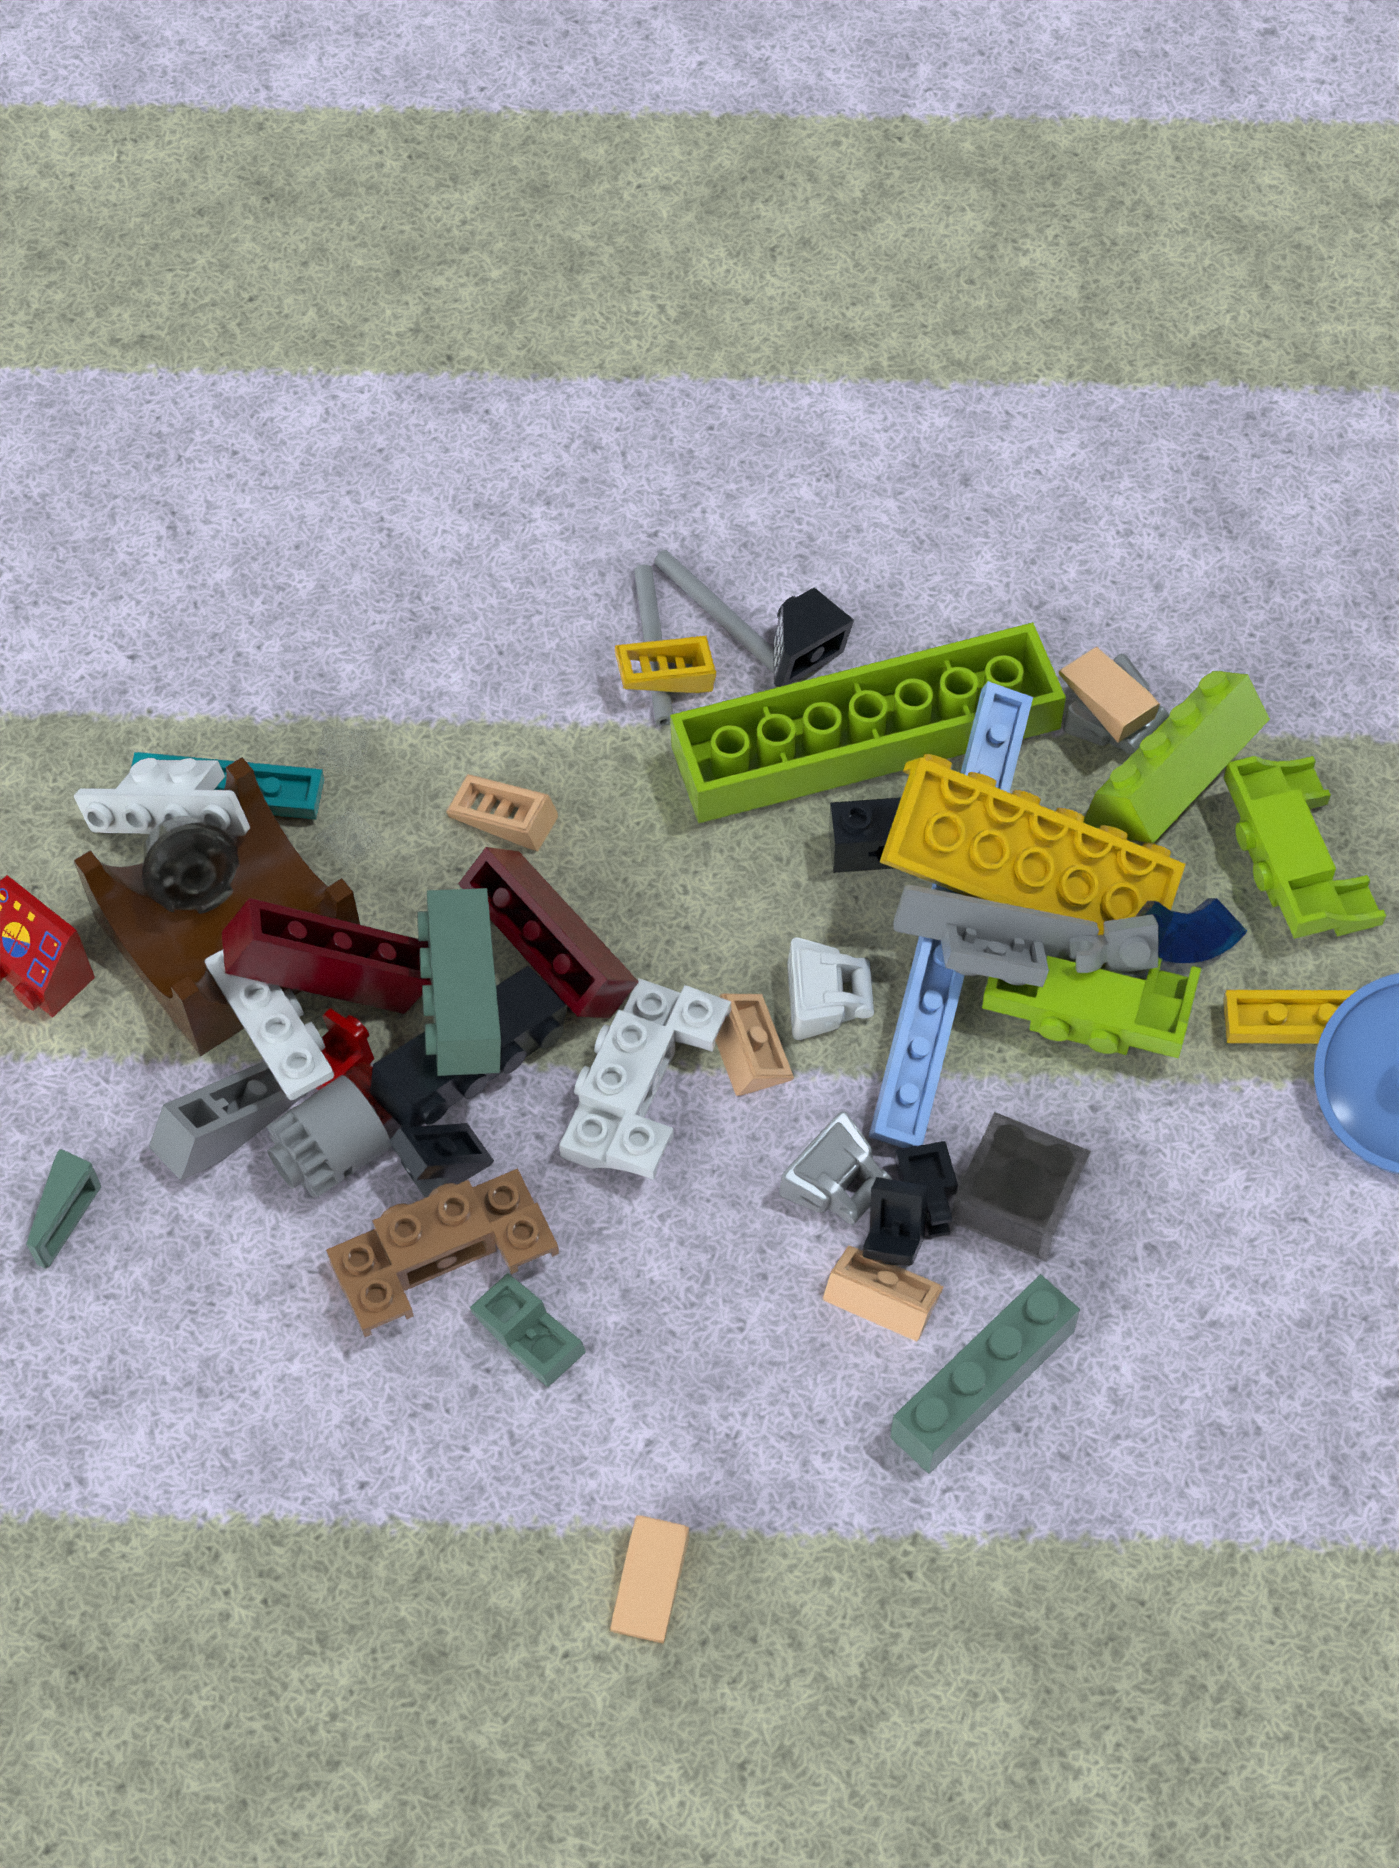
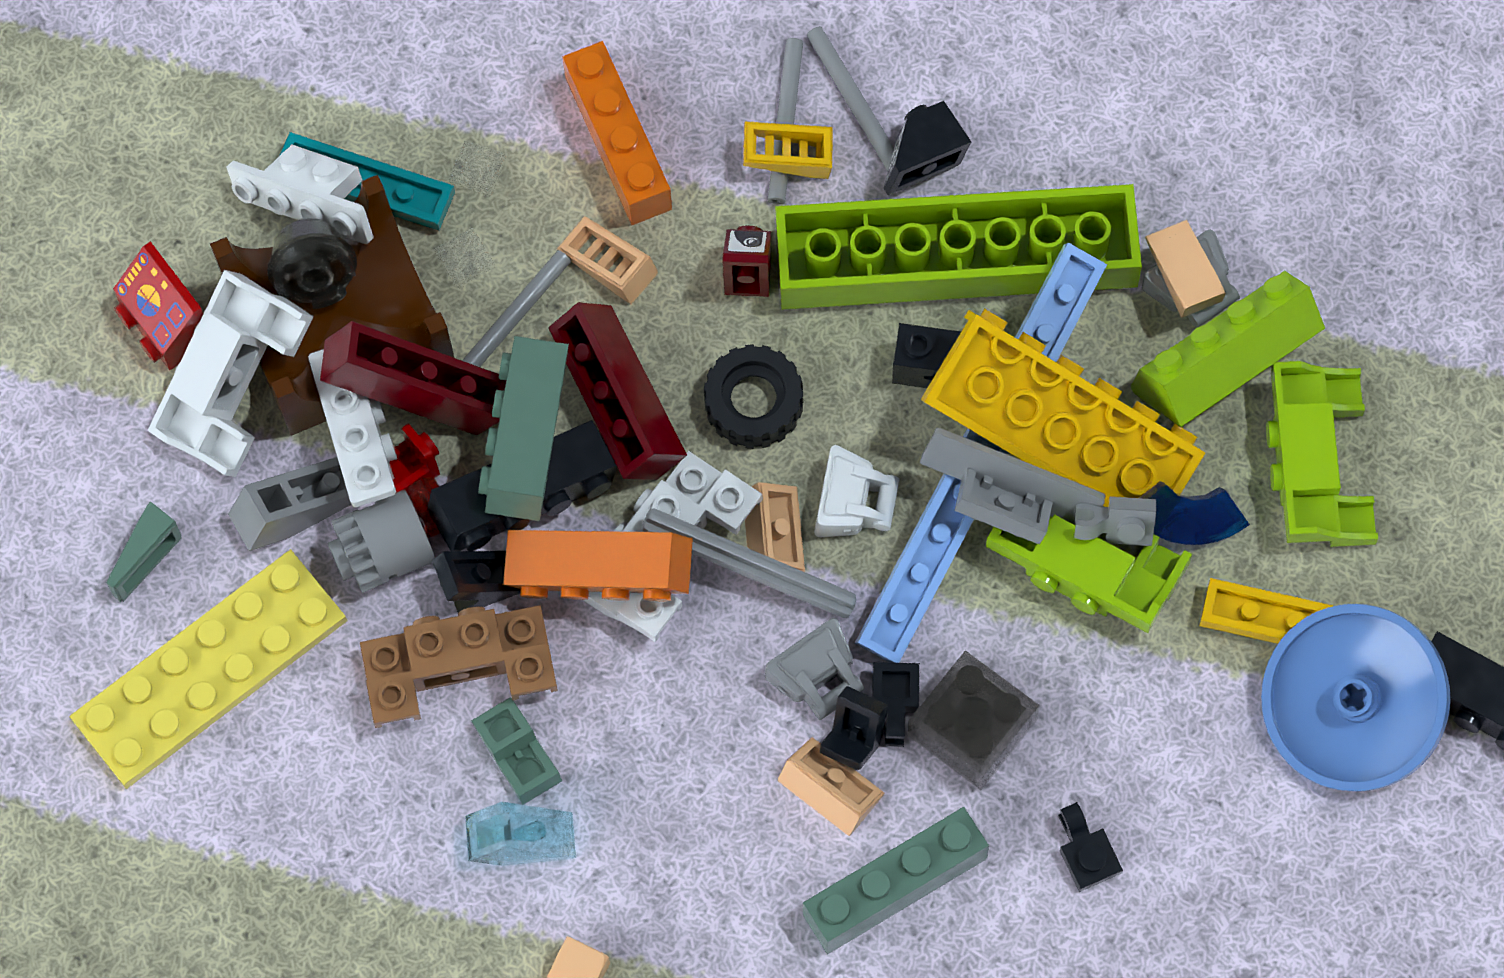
camera: 15 degrees right, 10 degrees up
(109, 994) = (219, 368): none -> white bracket
(158, 1319) = (208, 668): none -> light yellow plate
(422, 873) = (518, 309): none -> light grey piece
(483, 686) = (617, 133): none -> orange brick
(553, 1417) = (519, 835): none -> clear light blue slope
(573, 1104) = (598, 562): none -> orange brick
(653, 781) = (747, 261): none -> dark red slope
(693, 876) = (753, 362): none -> black tyre
(734, 1074) = (755, 565): none -> light grey axle
(1182, 1302) = (1087, 855): none -> black plate

